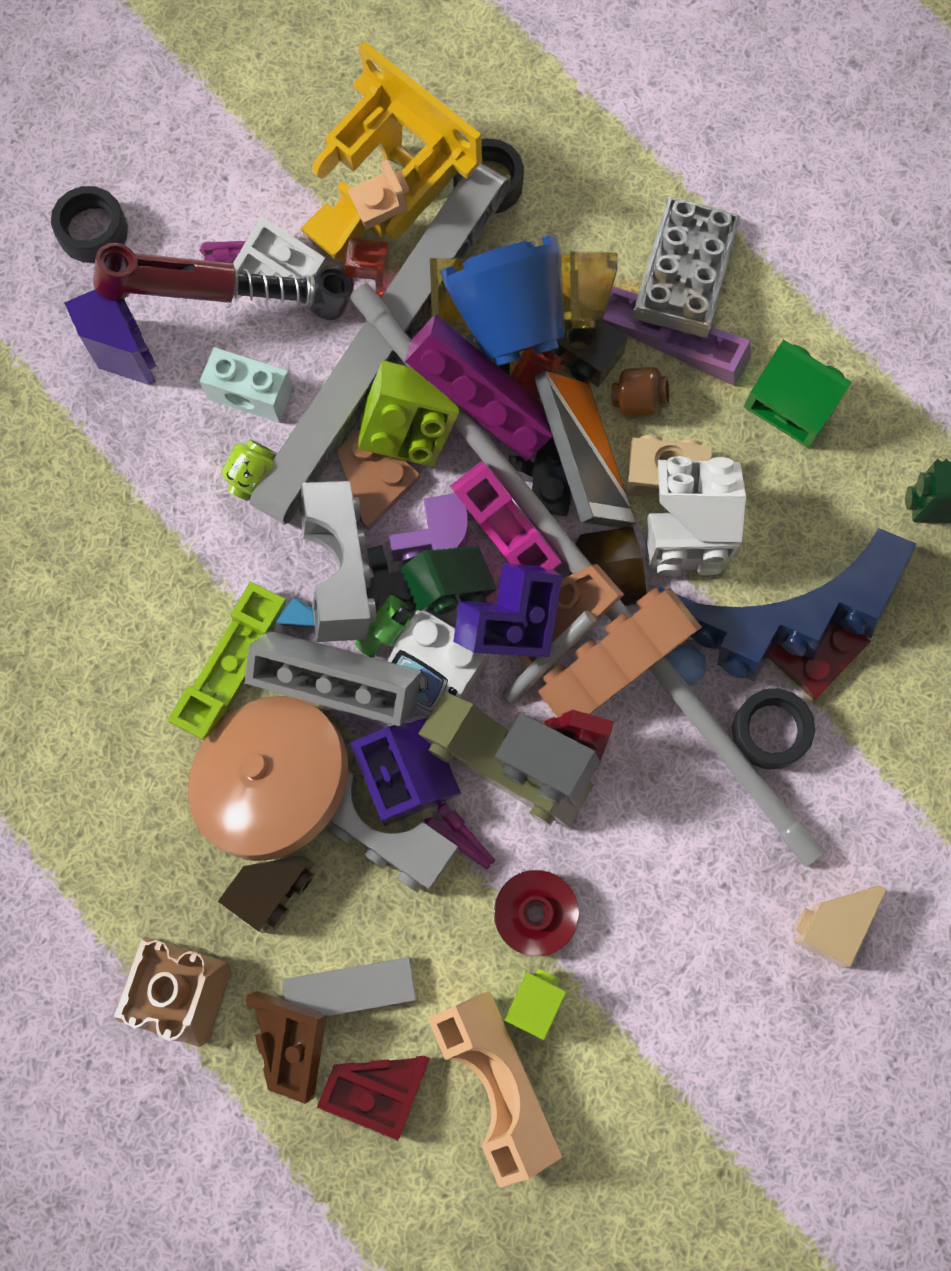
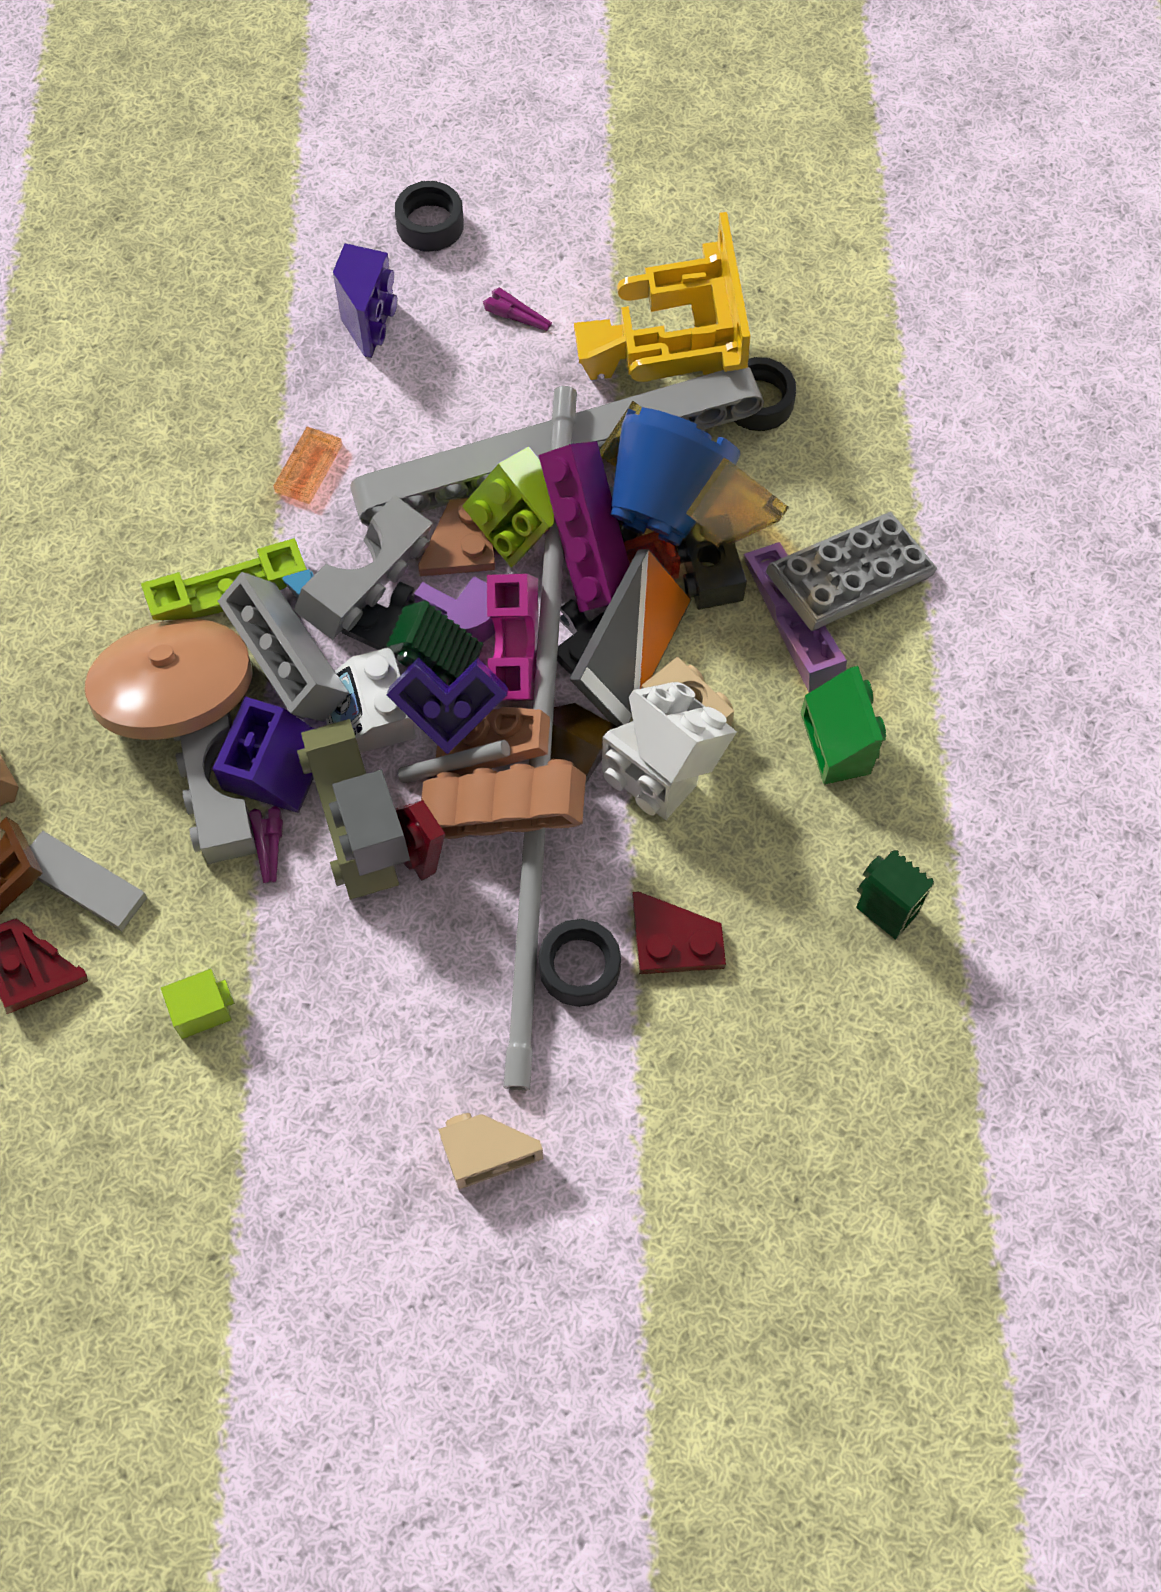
camera: 40 degrees right, 10 degrees down
(123, 273) = (402, 252): dark red piece -> none
(194, 511) = (308, 465): none -> clear orange tile
(246, 384) = (428, 404): light aqua brick -> none
(247, 467) = (371, 457): lime head -> none
(264, 888) = (91, 757): dark brown slope -> none
(277, 251) = (537, 336): white wing -> none
(368, 261) = (600, 381): clear red panel -> none
(380, 196) = (642, 335): light nougat bracket -> none
(389, 625) = (356, 643): bright green piece -> none
(518, 1134) = (131, 985): light nougat arch -> none
(541, 890) = (256, 922): dark red dish -> none
(641, 393) = (722, 635): reddish brown head -> none
(689, 663) = (560, 862): medium blue tile -> none
(801, 623) = (736, 913): dark blue arch -> none

